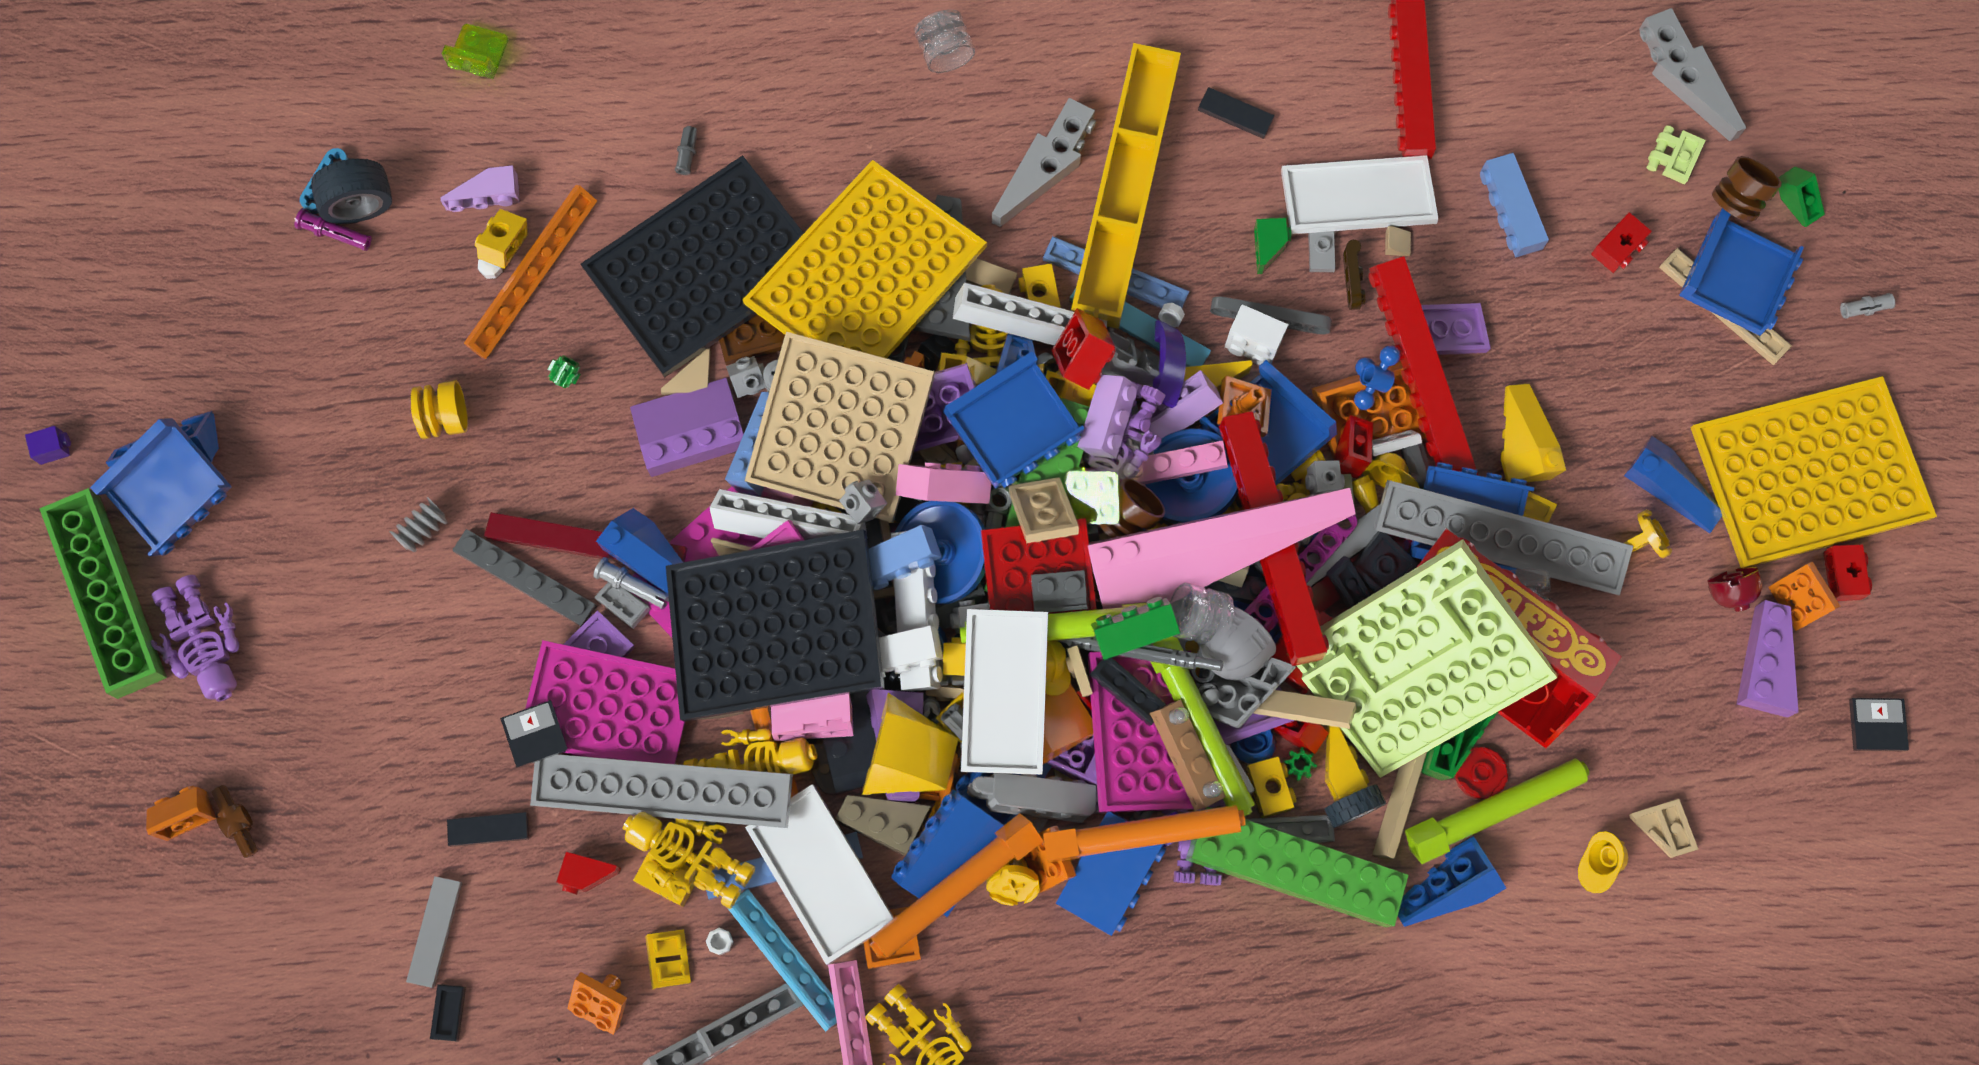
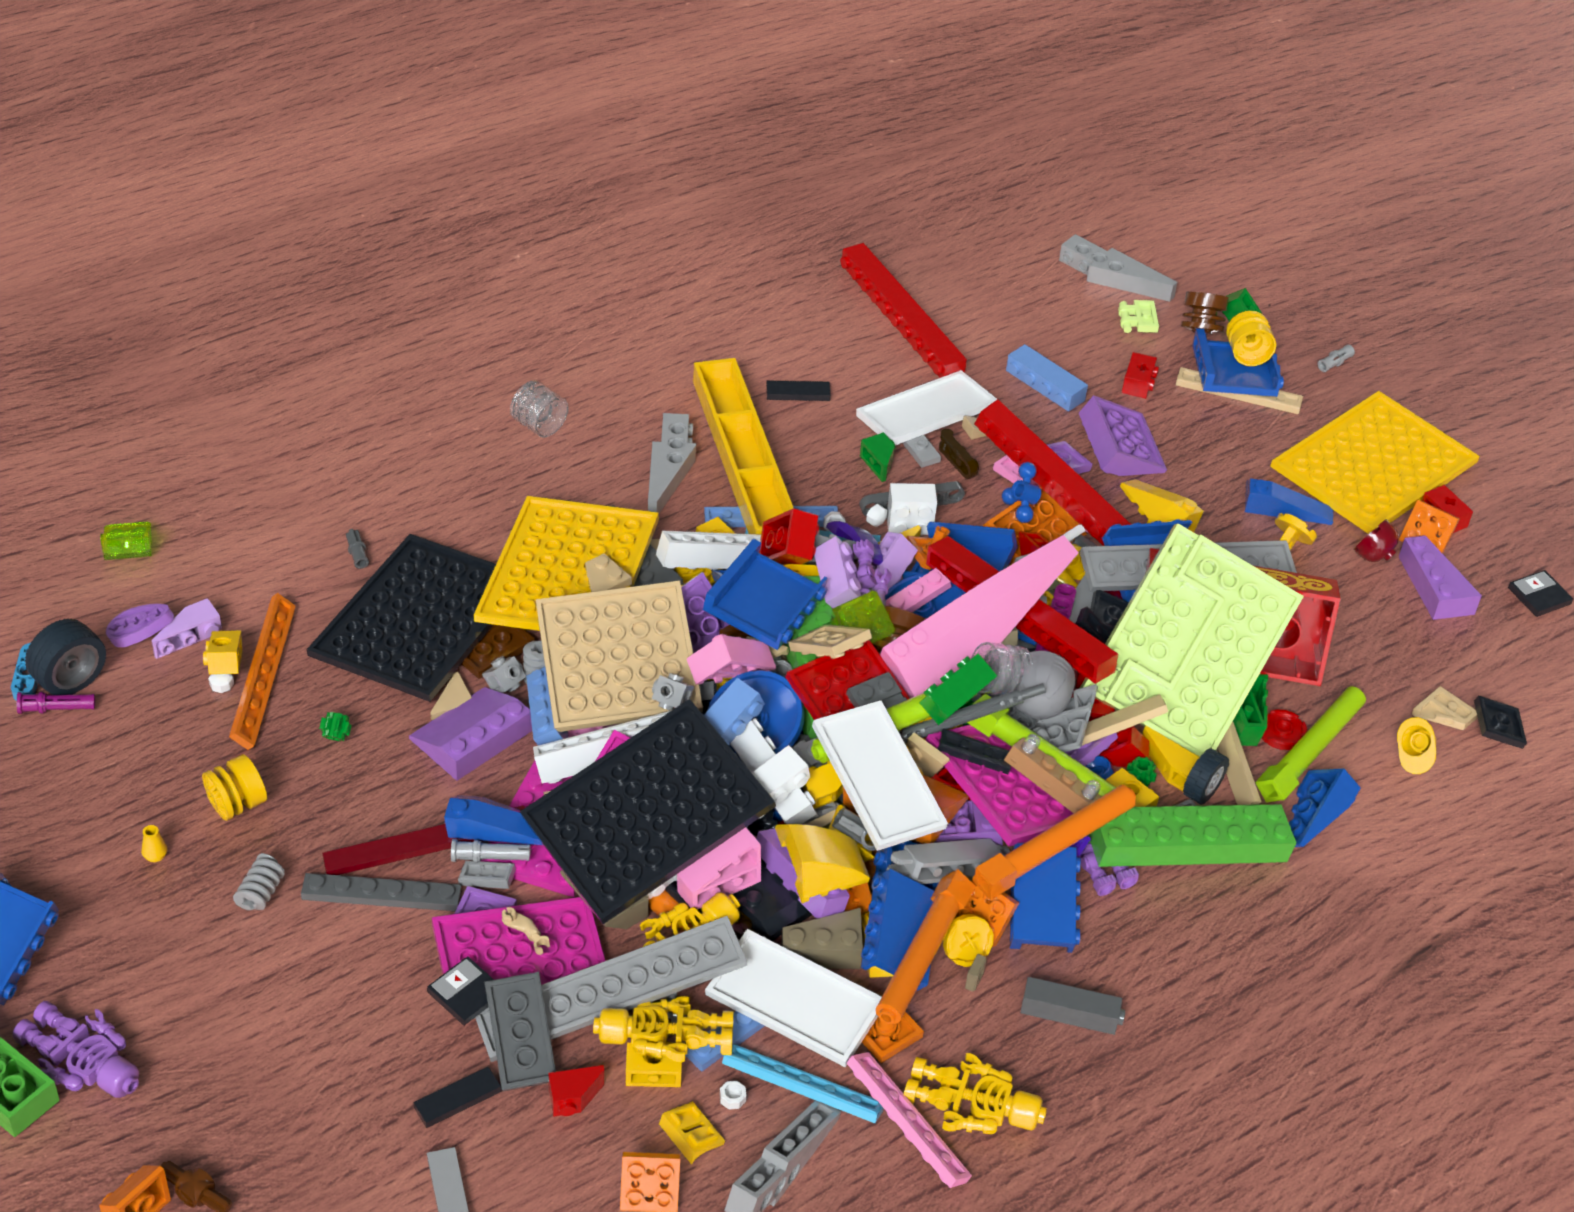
camera: 30 degrees left, 30 degrees down
(348, 439) = (153, 845): none -> yellow cone
(451, 169) = (138, 624): none -> medium lavender piece
(562, 797) = (520, 1031): none -> dark grey tile
(620, 686) = (526, 925): none -> tan arm
(886, 310) = (606, 574): none -> tan wing
(1005, 918) = (975, 973): none -> dark tan tile
(1073, 996) = (1072, 1006): none -> dark grey brick
(1221, 323) = (876, 515): none -> white tile
(1545, 326) = (1120, 439): none -> medium lavender slope
(1713, 869) = (1500, 722): none -> black tile
(1772, 253) = (1251, 338): none -> yellow wheel

